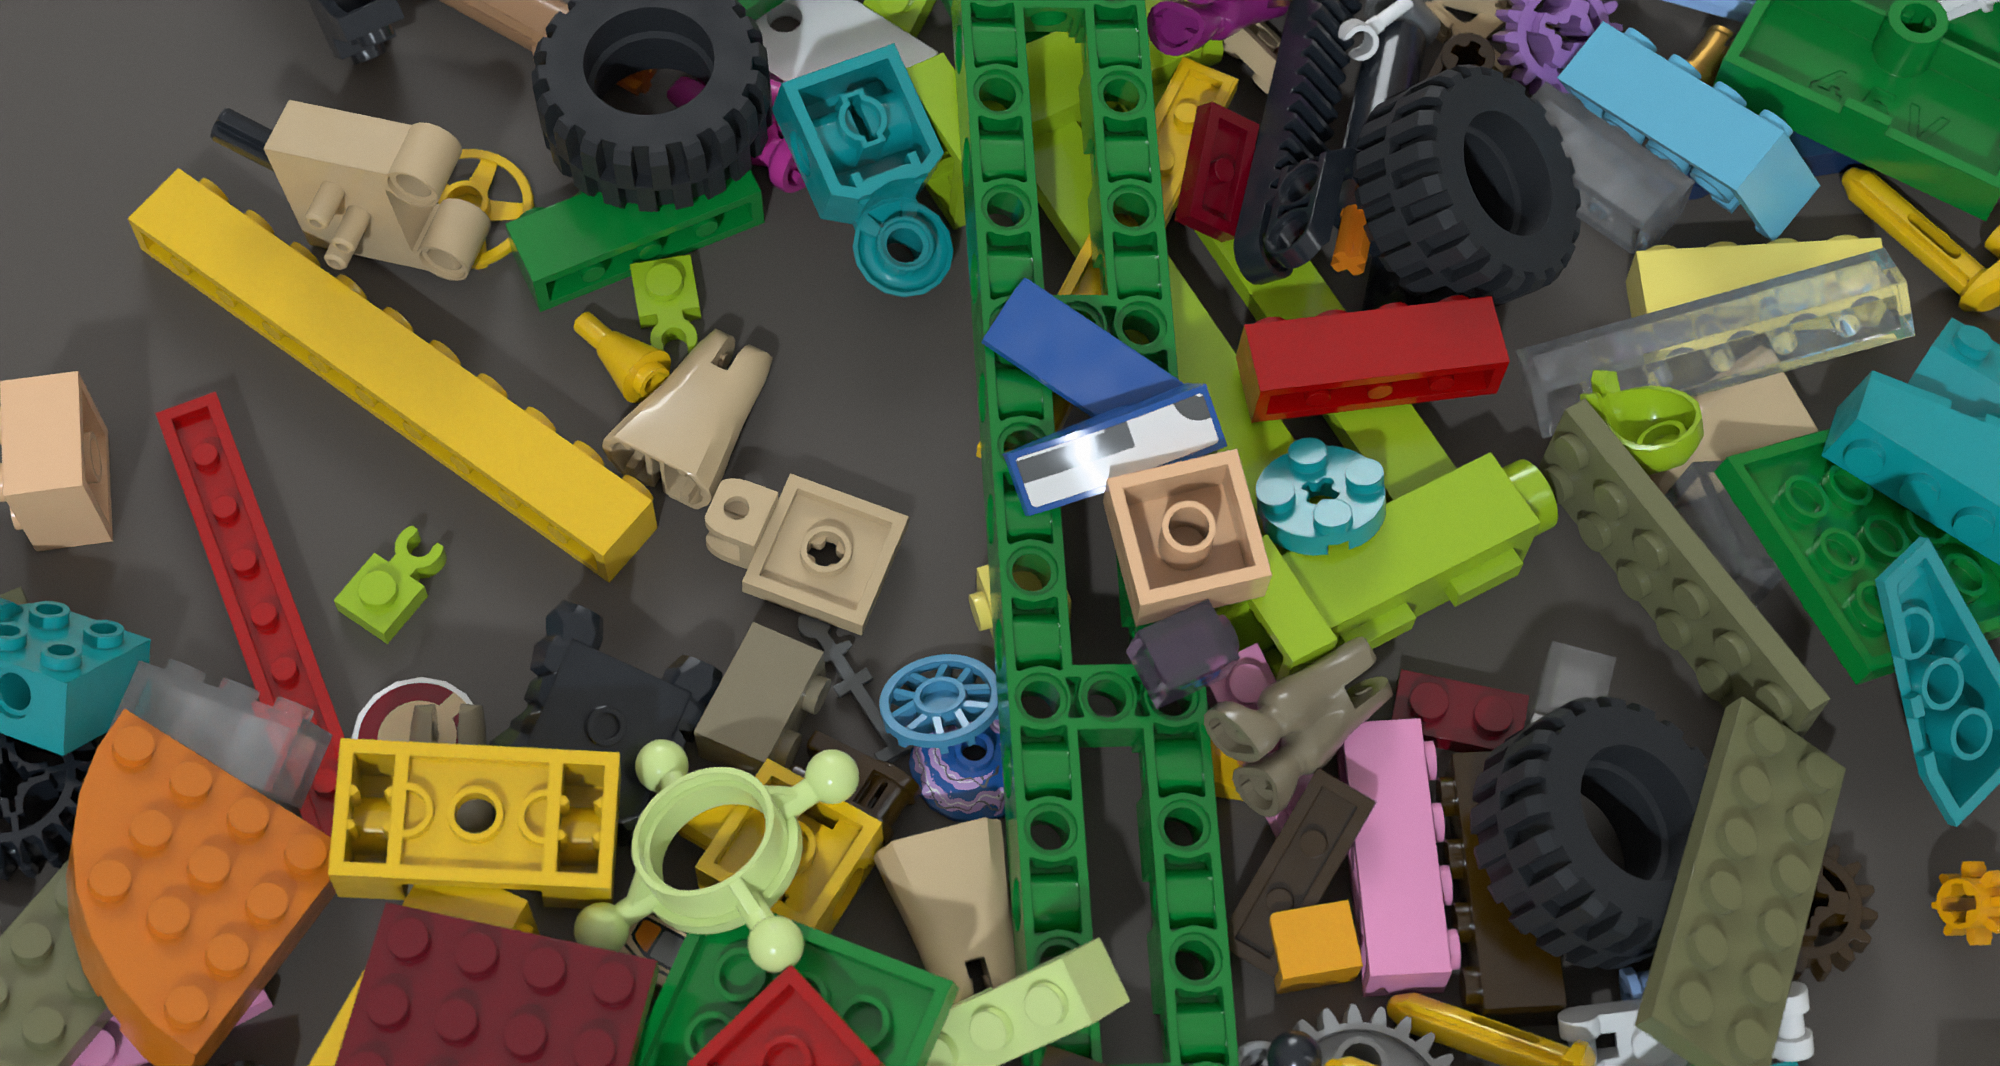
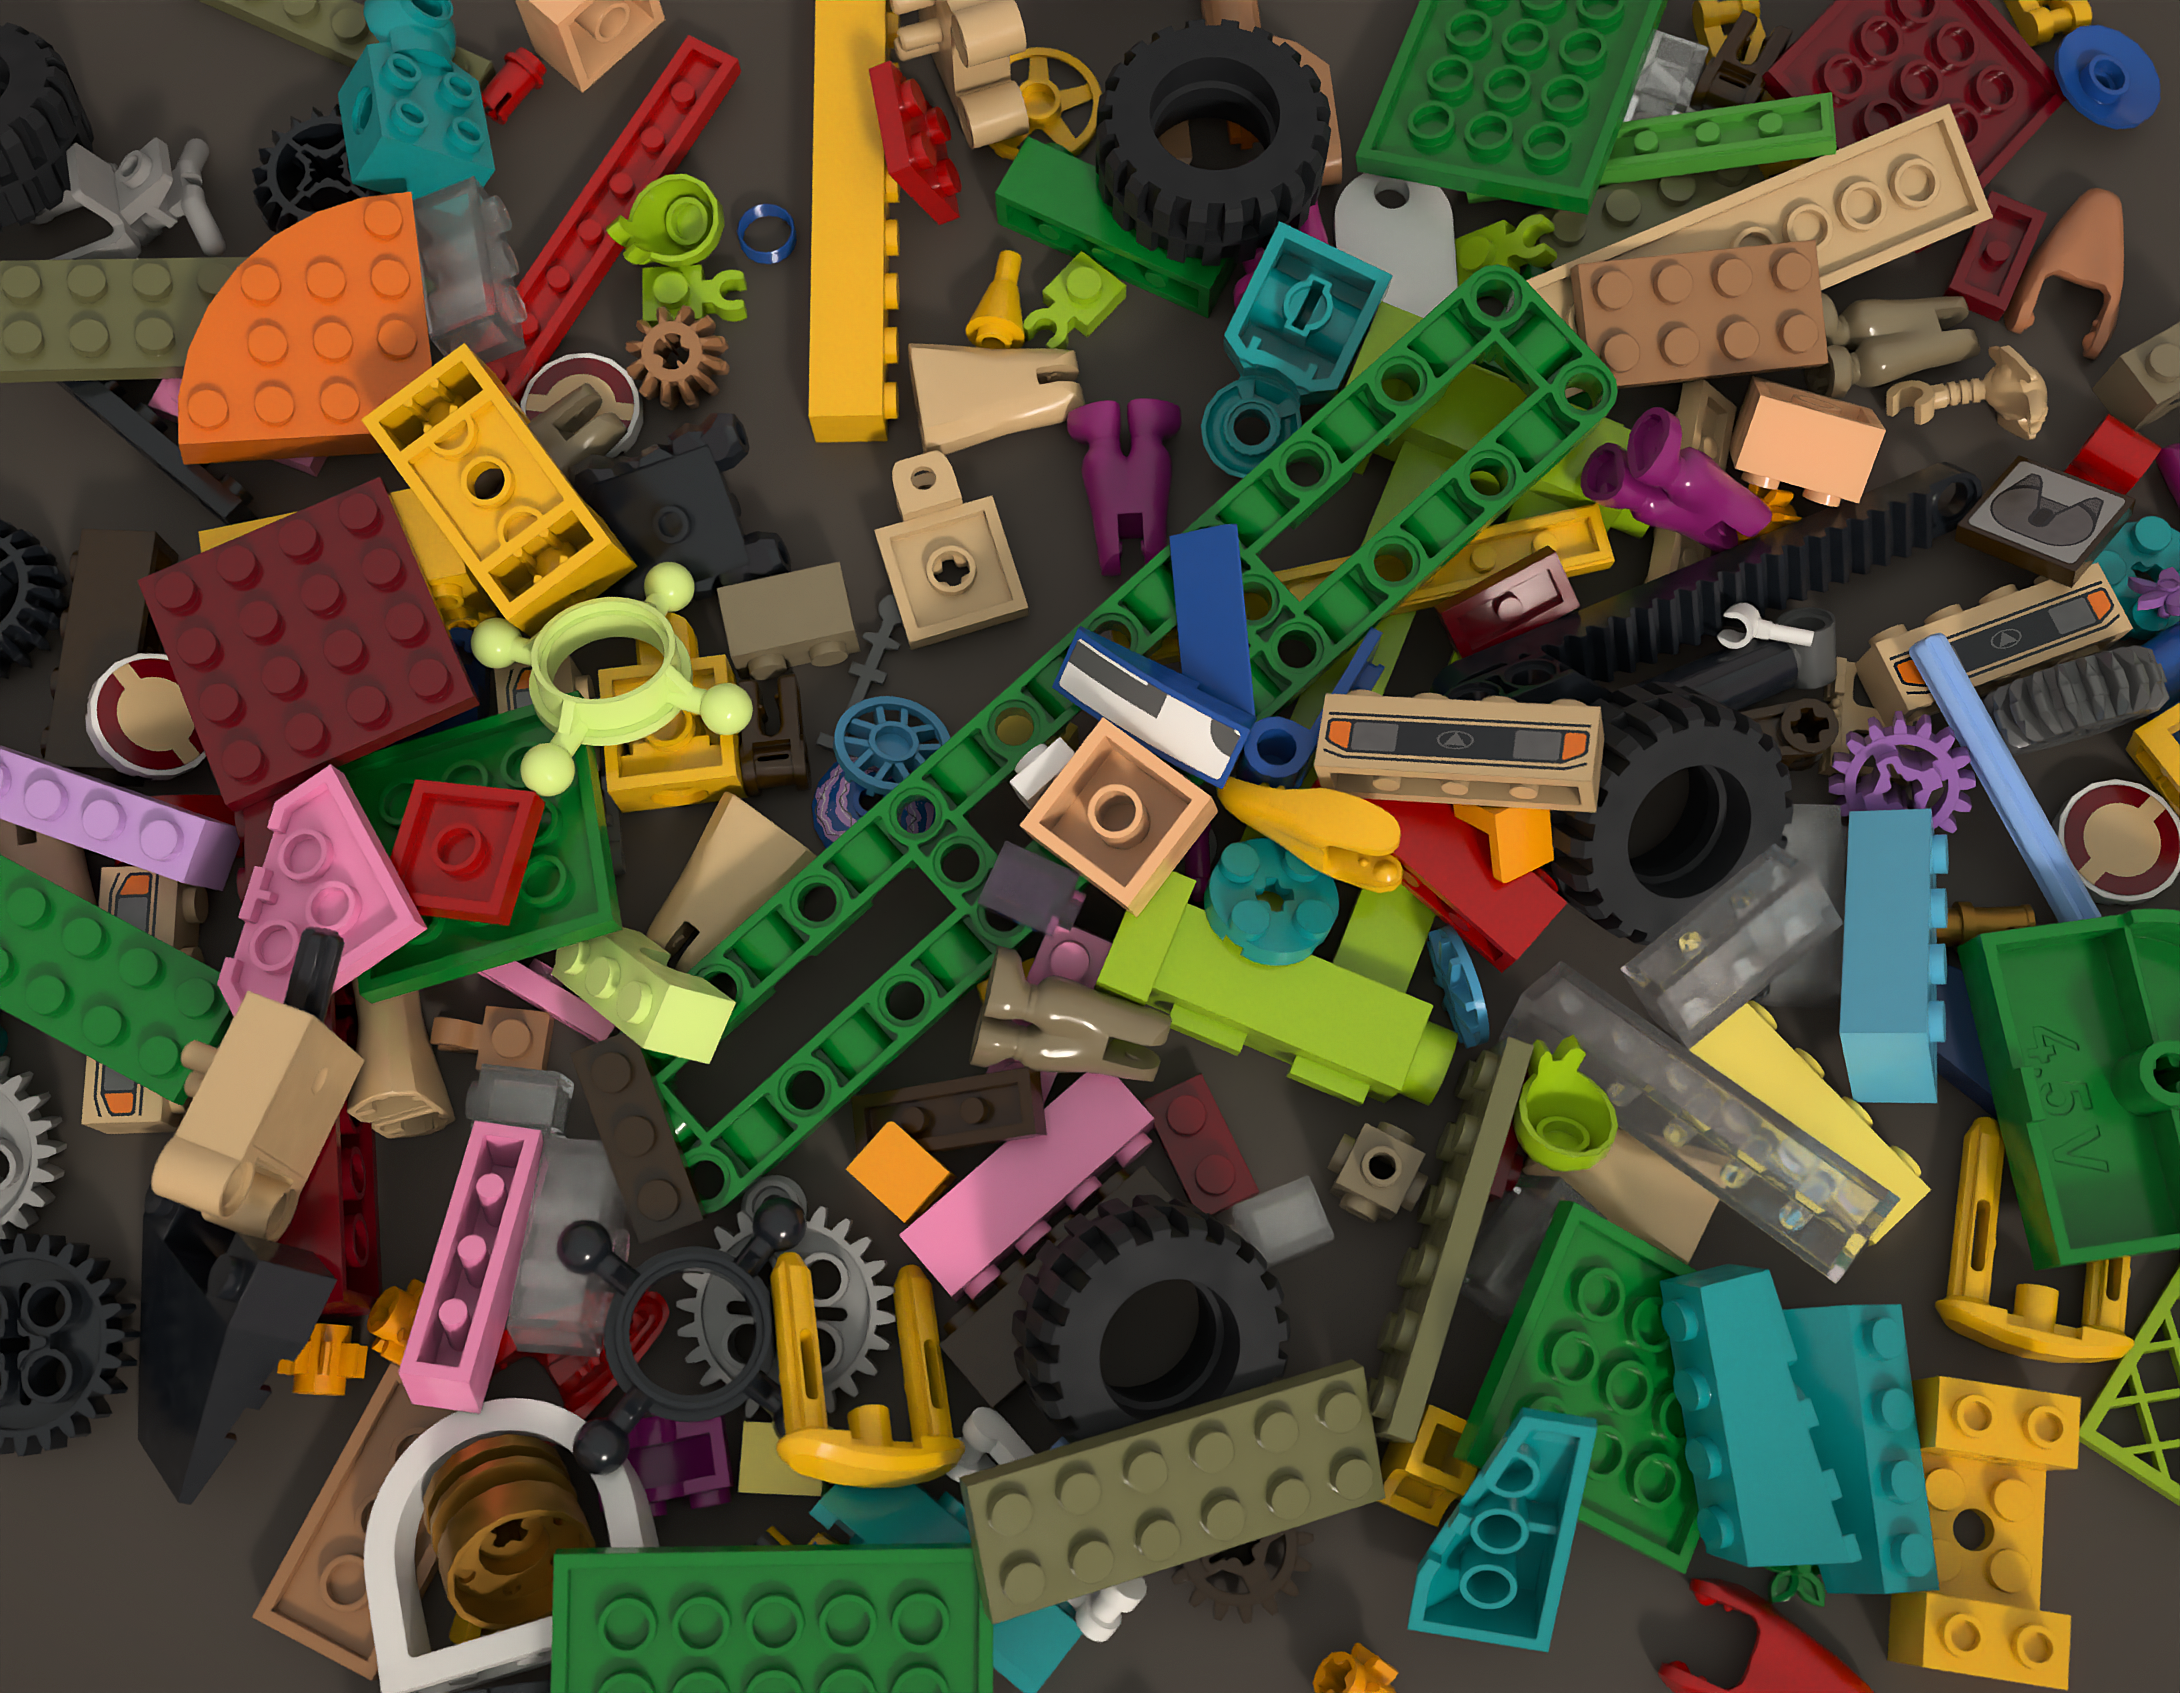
camera: 55 degrees right, 10 degrees up
(56, 575) = (512, 84): none -> red pin
(324, 540) = (670, 223): none -> lime piece
(382, 462) = (761, 211): none -> blue axle
(434, 303) = (915, 142): none -> red plate
(452, 604) = (667, 336): none -> medium nougat gear
(868, 378) = (1128, 492): none -> magenta piece
(1099, 569) = (1039, 770): none -> white plate
(1211, 356) = (1285, 751): none -> blue door
(1311, 407) = (1323, 829): none -> yellow animal
(1335, 261) = (1461, 750): none -> tan brick
(1401, 274) = (1517, 837): none -> light orange panel
(1479, 431) = (1461, 986): none -> dark azure wheel
(1582, 596) = (1361, 1191): none -> dark tan brick
(1606, 220) = (1732, 945): none -> clear brick
(1850, 722) = (1423, 1474): none -> yellow brick

